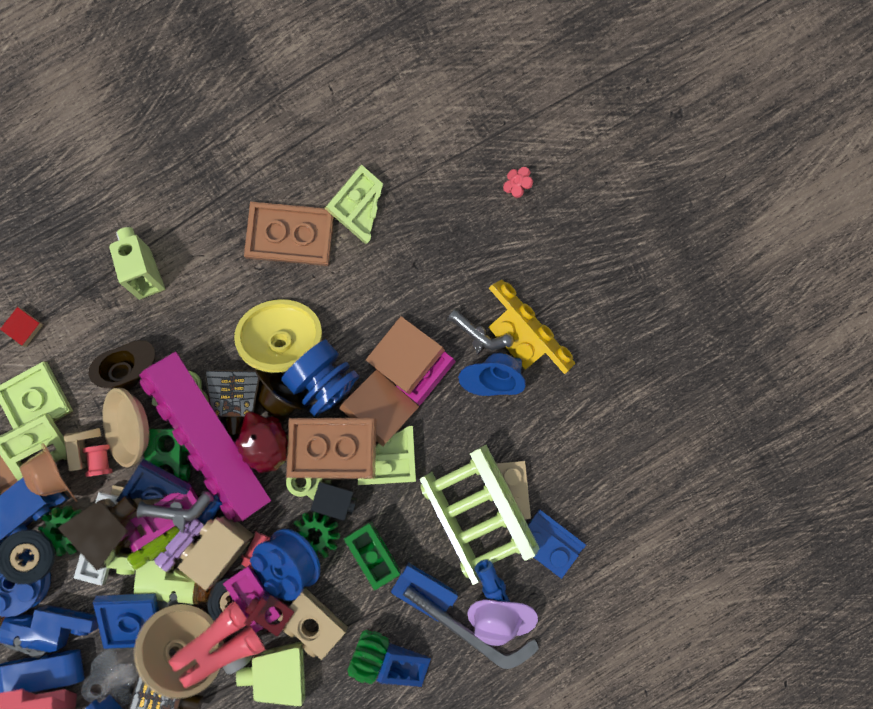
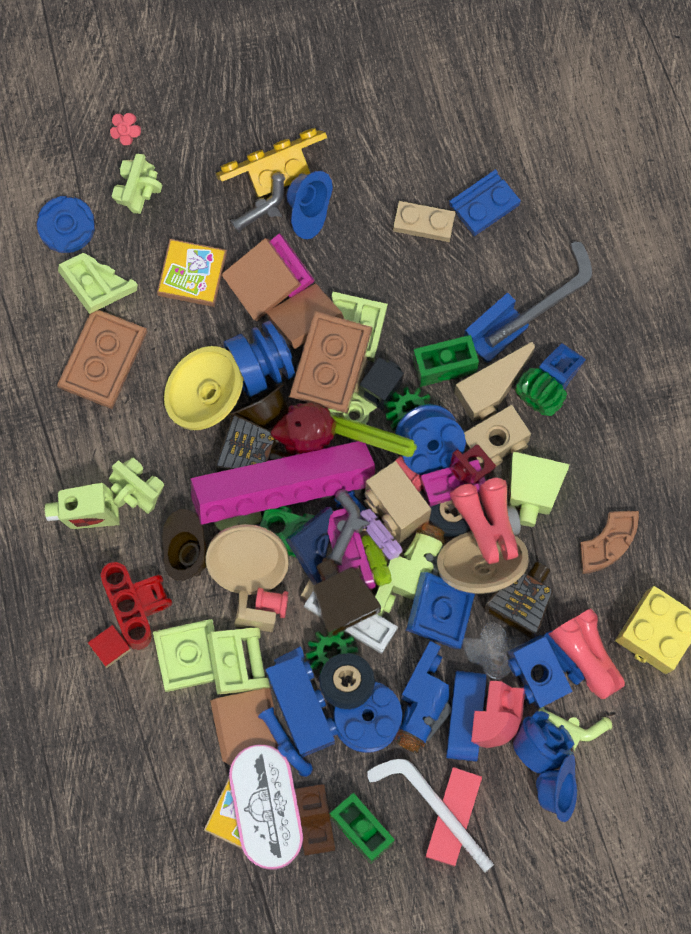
camera: 70 degrees left, 10 degrees down
(42, 474) = (271, 640): nougat piece -> none
(71, 345) = (141, 595): none -> red beam
(179, 290) = (131, 488): none -> yellowish green hips
(269, 513) = (374, 436): none -> lime axle
(363, 605) = (487, 388): none -> tan slope
(395, 288) = (192, 272): none -> tile
(408, 159) = (65, 224): none -> blue tile
(465, 212) = (140, 183): none -> yellowish green hips
(493, 586) = (510, 260): blue pin -> none
(494, 490) = (418, 231): yellowish green fence -> none
(501, 621) = (542, 264): lavender piece -> none

